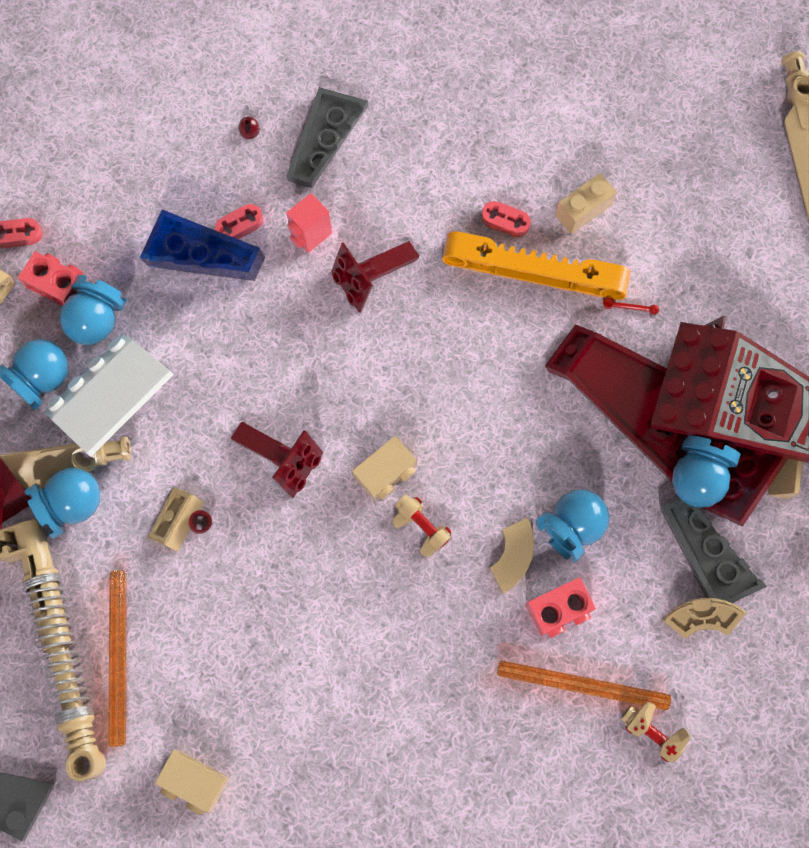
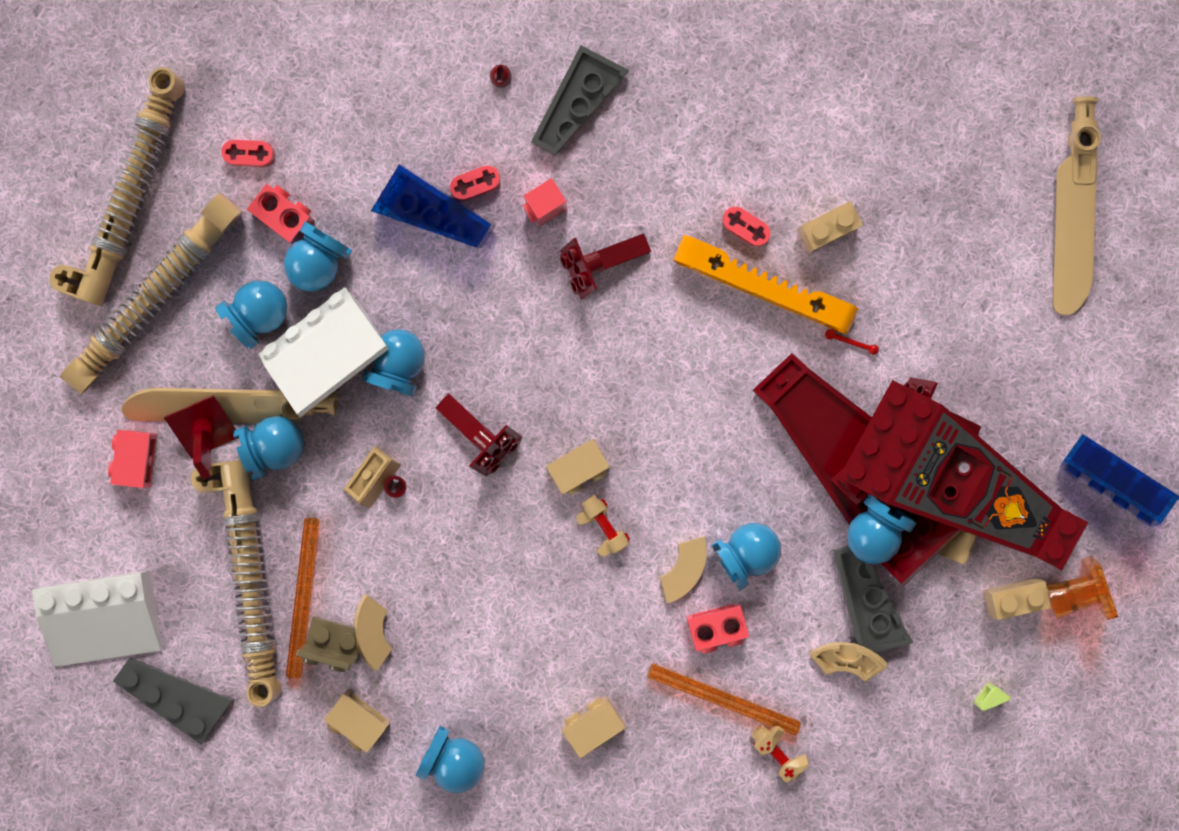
camera: 10 degrees right, 15 degrees up
(155, 696) = (330, 644): none -> dark tan bracket
(185, 397) = (399, 363): none -> dark azure tile
(193, 680) = (369, 632): none -> tan tile
(304, 806) = (453, 763): none -> dark azure tile
(450, 738) = (592, 726): none -> tan brick

